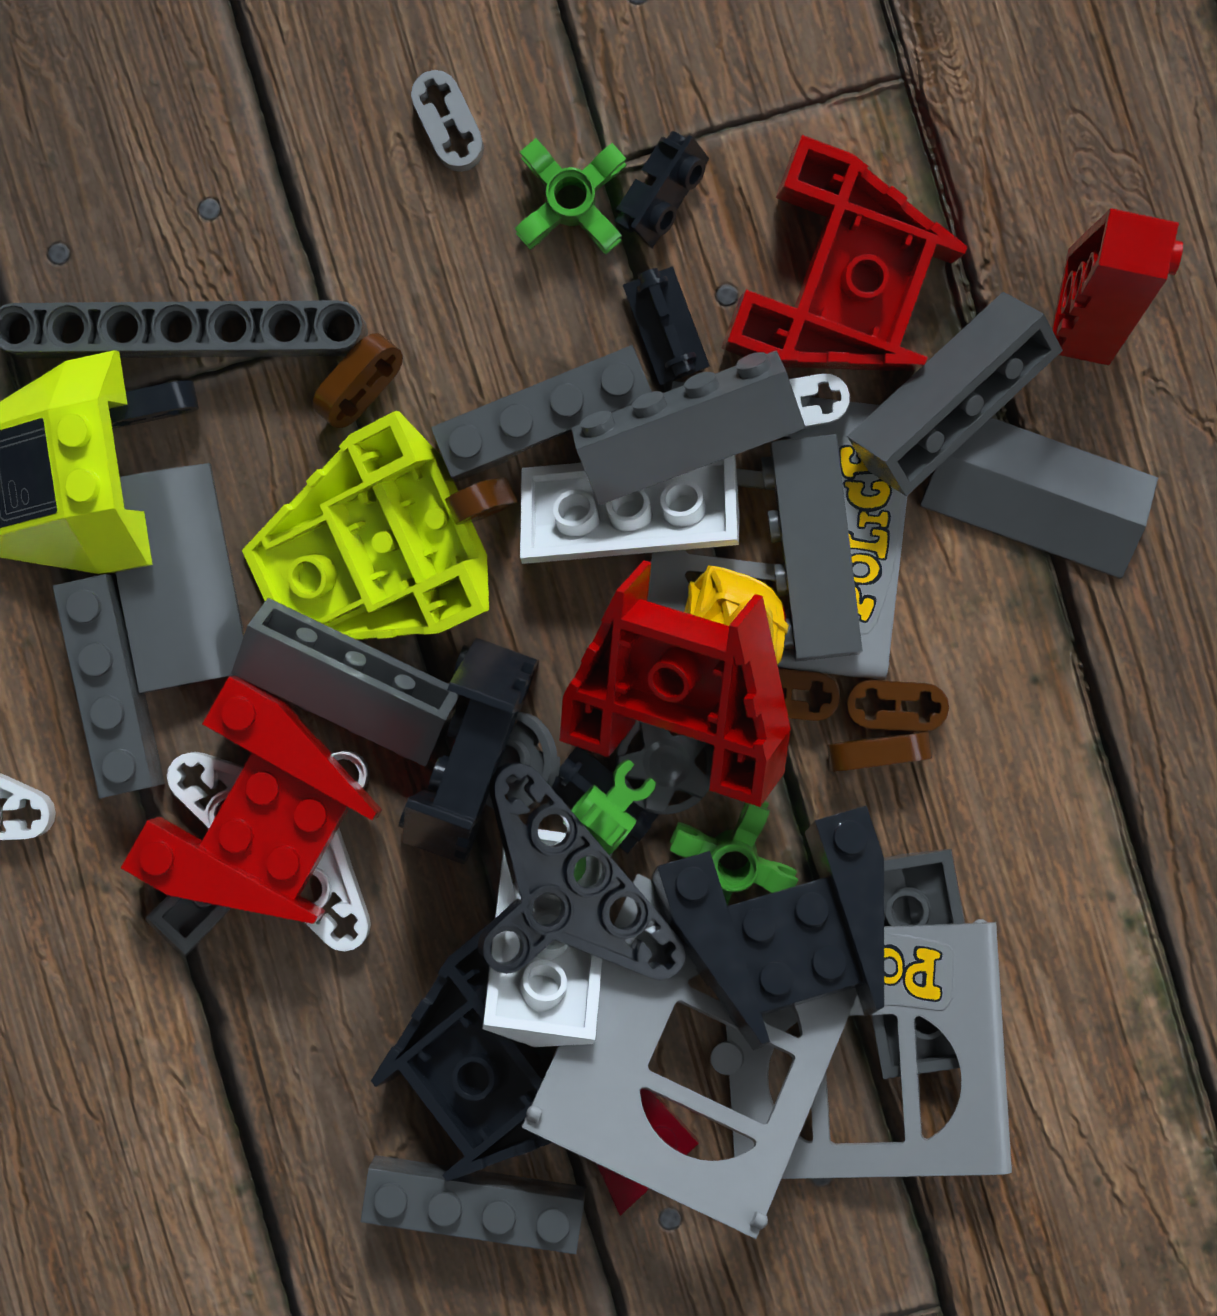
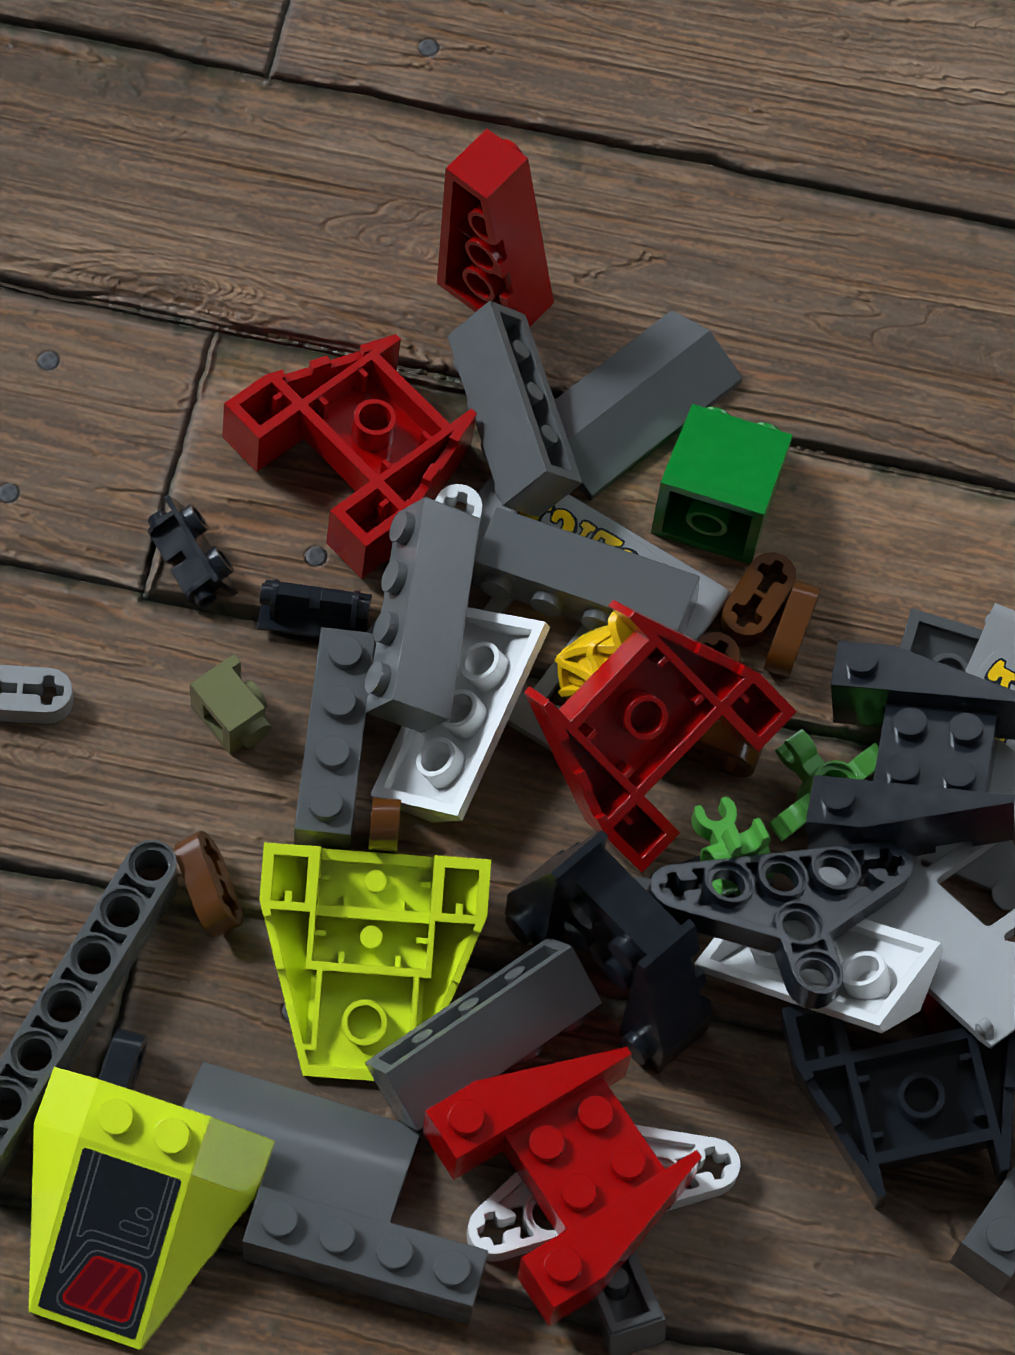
camera: 70 degrees left, 25 degrees down
(530, 307) = (229, 706): none -> olive brick
(590, 179) = (112, 632): bright green pin -> none
(670, 764) = (706, 791): dark grey wheel -> none
(994, 616) = (720, 483): none -> green slope

